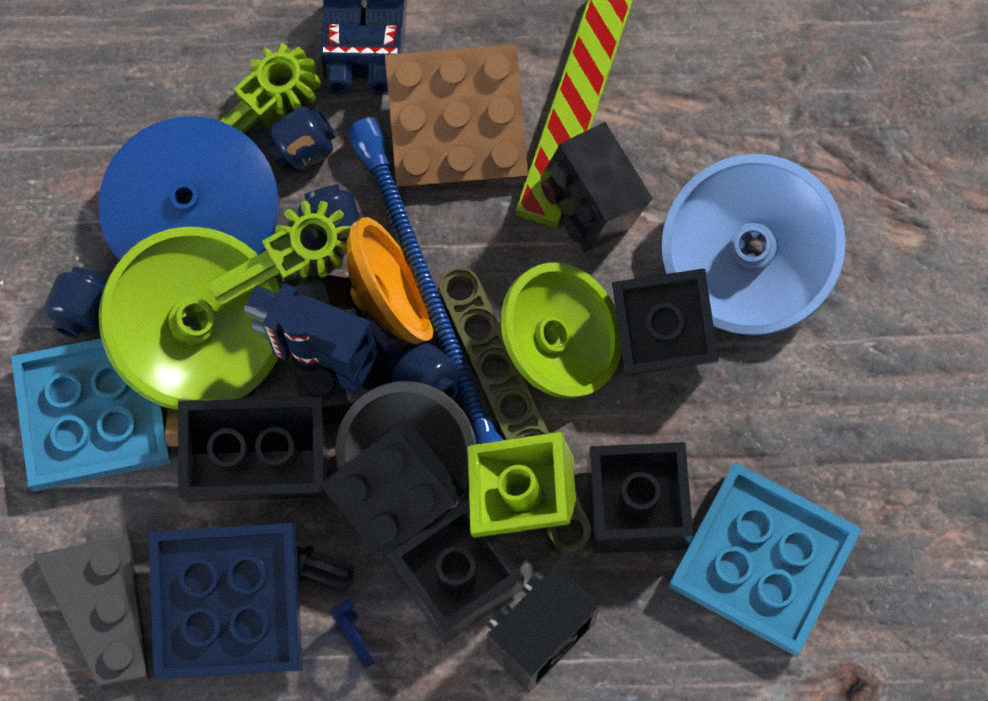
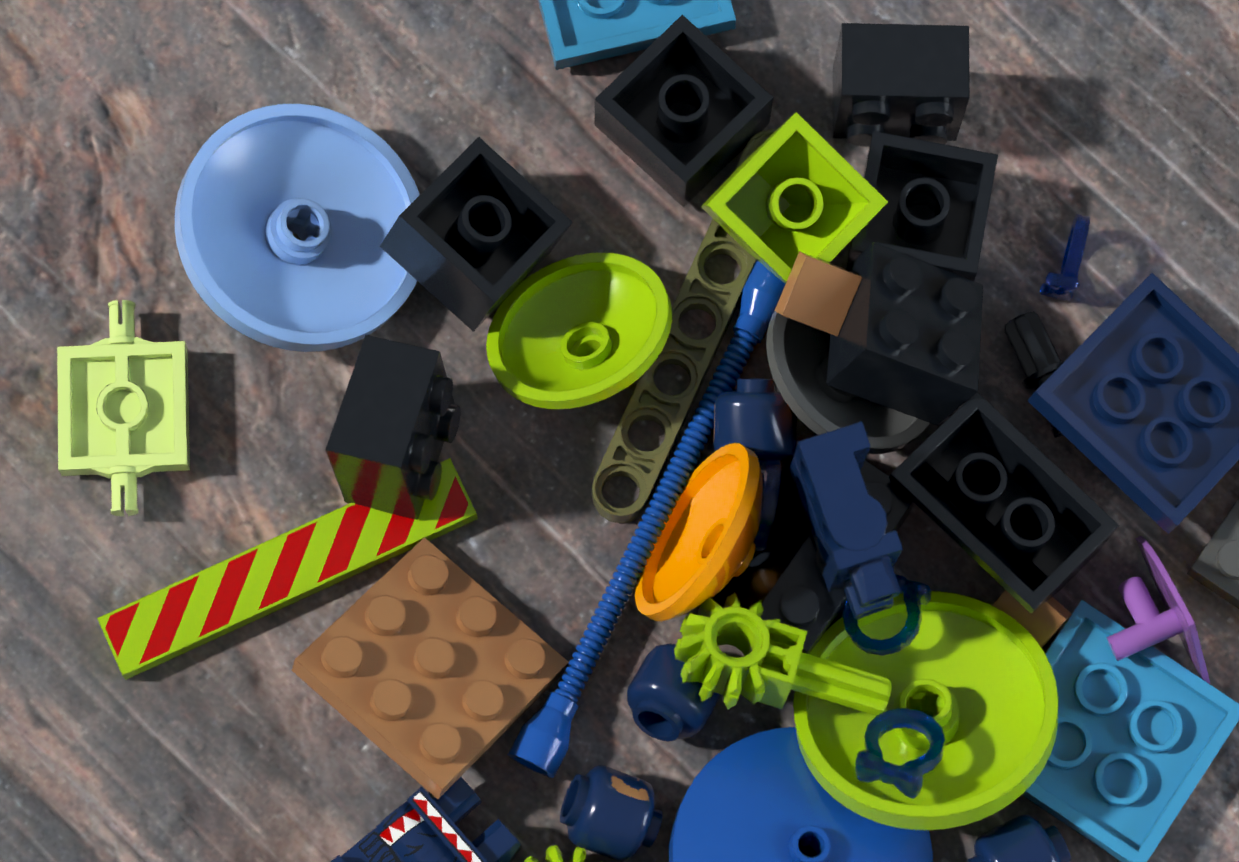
camera: 135 degrees left, 5 degrees up
(117, 487) = (1150, 624): none -> medium lavender shield
(162, 255) = (906, 777): none -> piece
(256, 370) = (914, 595): none -> piece
(456, 452) = (818, 293): none -> medium nougat tile
(733, 94) = (123, 408): none -> yellowish green plate

